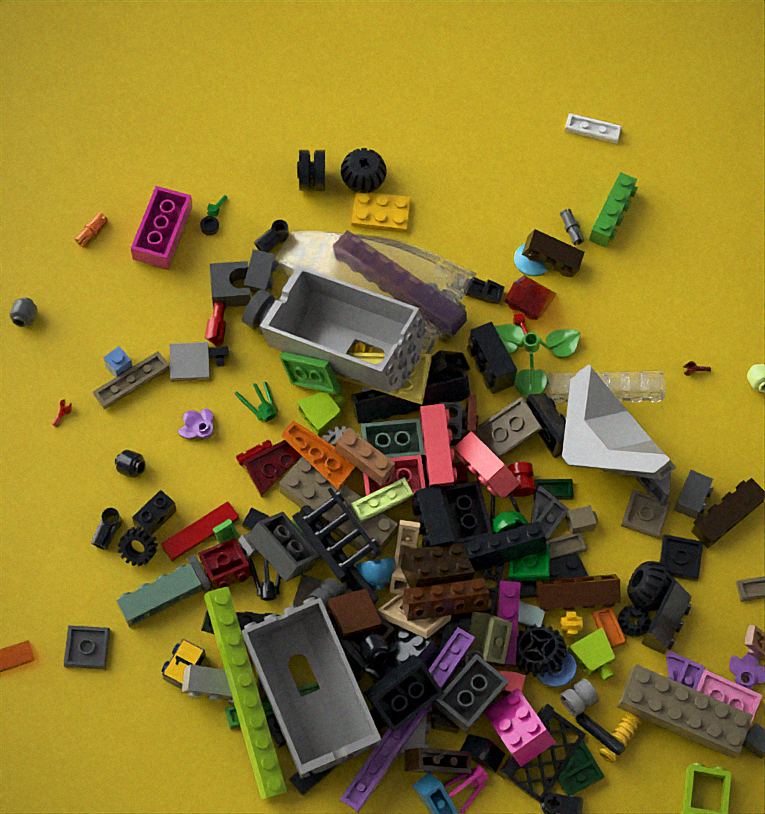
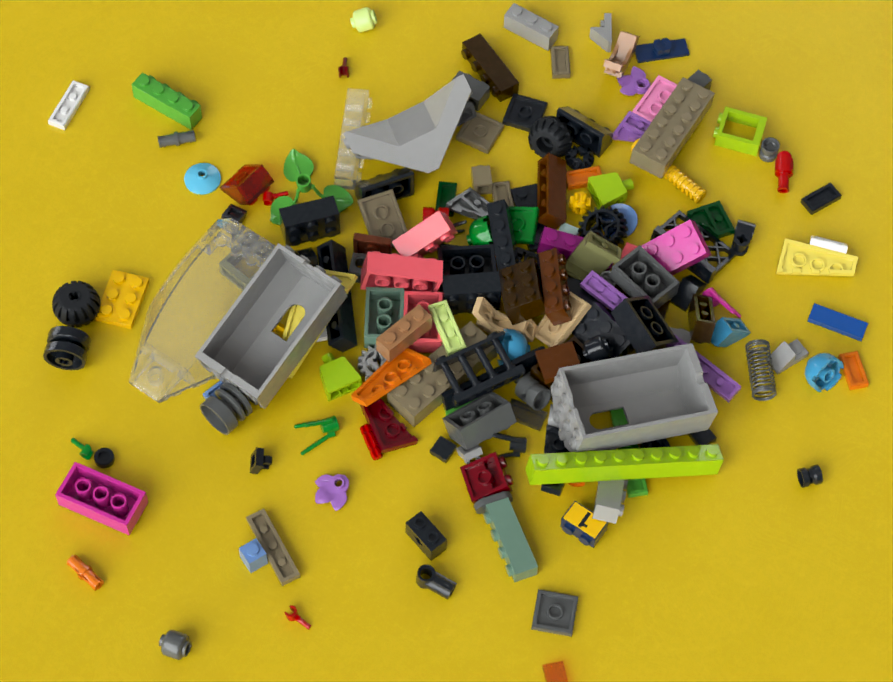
camera: 80 degrees left, 5 degrees down
(130, 463) = (367, 554): black head -> none
(130, 553) = (452, 551): black tyre -> none
(189, 361) = (260, 491): light grey tile -> none
(198, 531) = (447, 500): red tile -> none
(216, 325) = (225, 460): red arm -> none
(221, 283) = (181, 450): dark grey piece -> none
(225, 531) = (453, 474): bright green plate -> none
(260, 271) = (173, 411): dark grey brick -> none
(272, 238) = (134, 398): black piece -> none
(310, 373) = (303, 372): bright green tile -> none
(399, 283) = (227, 274): brick -> none
(553, 253) = (206, 155): dark brown brick -> none
(581, 696) = (647, 205): light grey wheel -> none
(600, 734) = (683, 195): black axle -> none

